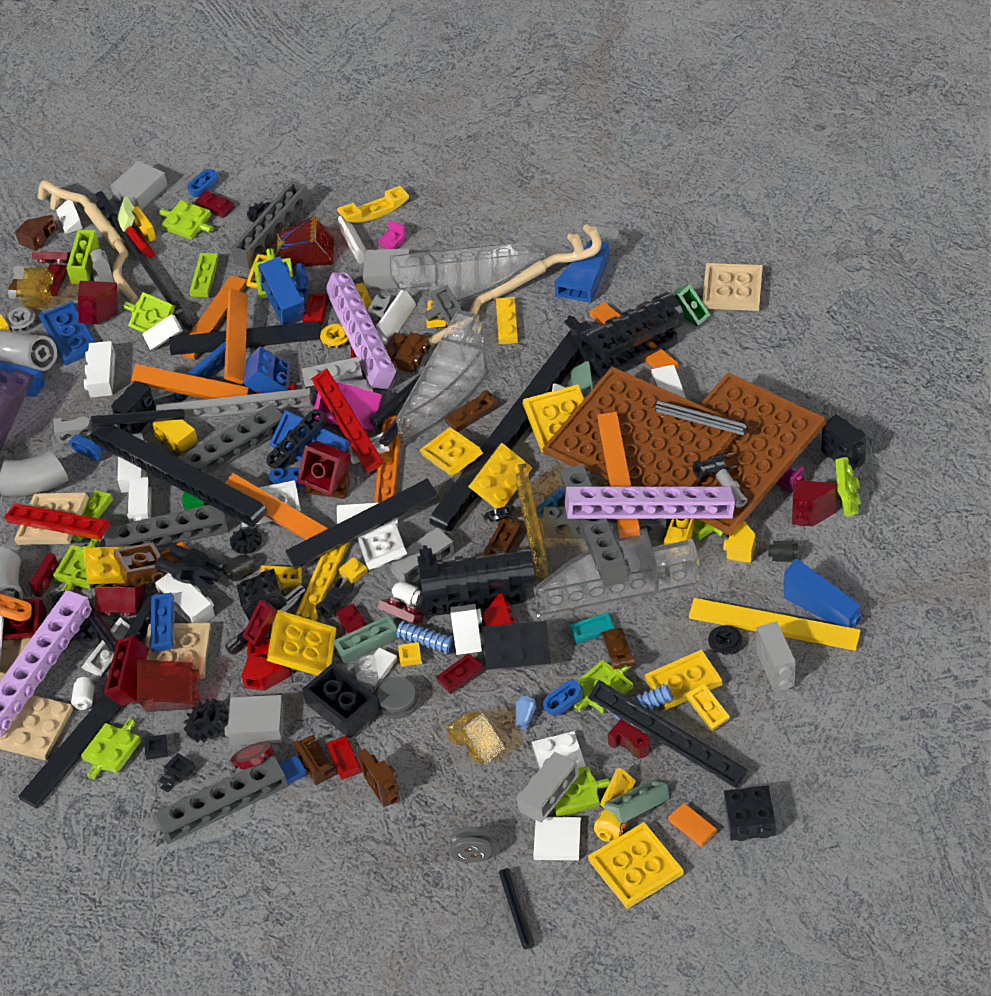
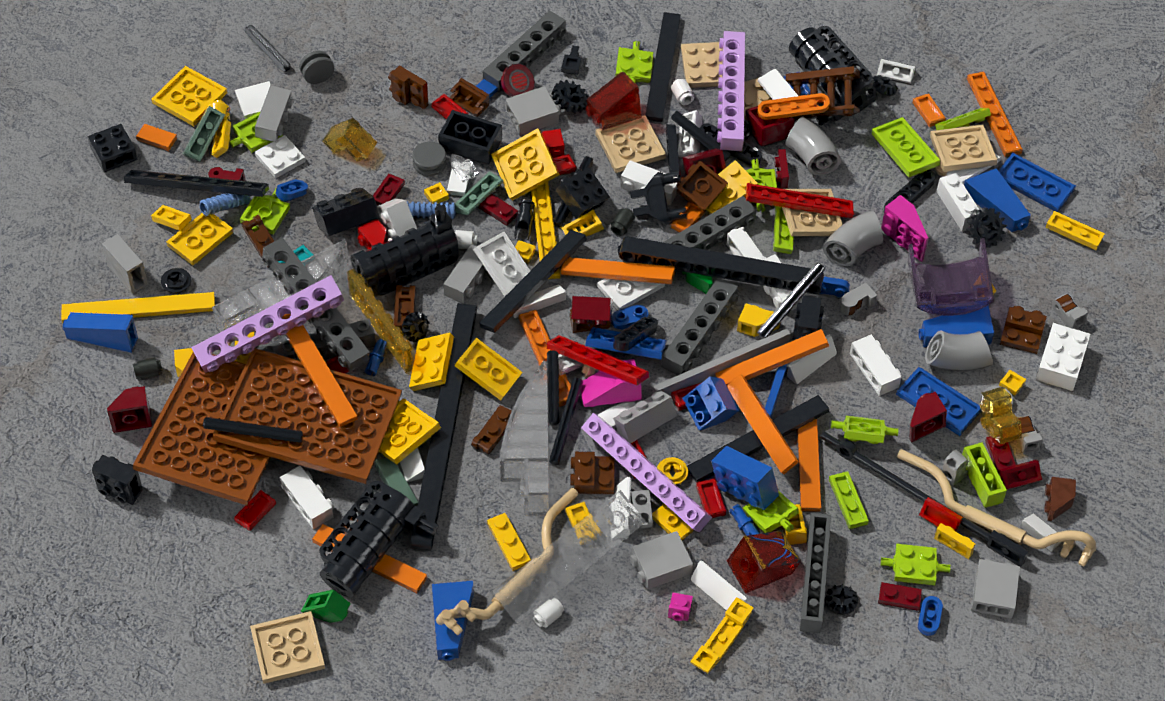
camera: 150 degrees right, 5 degrees up
(122, 677) = (653, 103): dark red brick -> none
(125, 214) = (979, 538): yellowish green slope -> none
(156, 747) = (599, 73): black plate -> none
(161, 332) = (840, 413): white tile -> none
(162, 622) = (651, 148): blue plate -> none
(259, 623) = (567, 165): dark red plate -> none
(408, 612) = (466, 223): plate -> none
(444, 306) = (569, 511): dark grey hinge -> none
(524, 711) = (320, 177): medium blue cone -> none
(711, 465) = (223, 389): black piece -> none
(727, 481) = (203, 377): light grey pin -> none
(847, 487) = (102, 433): lime plate -> none

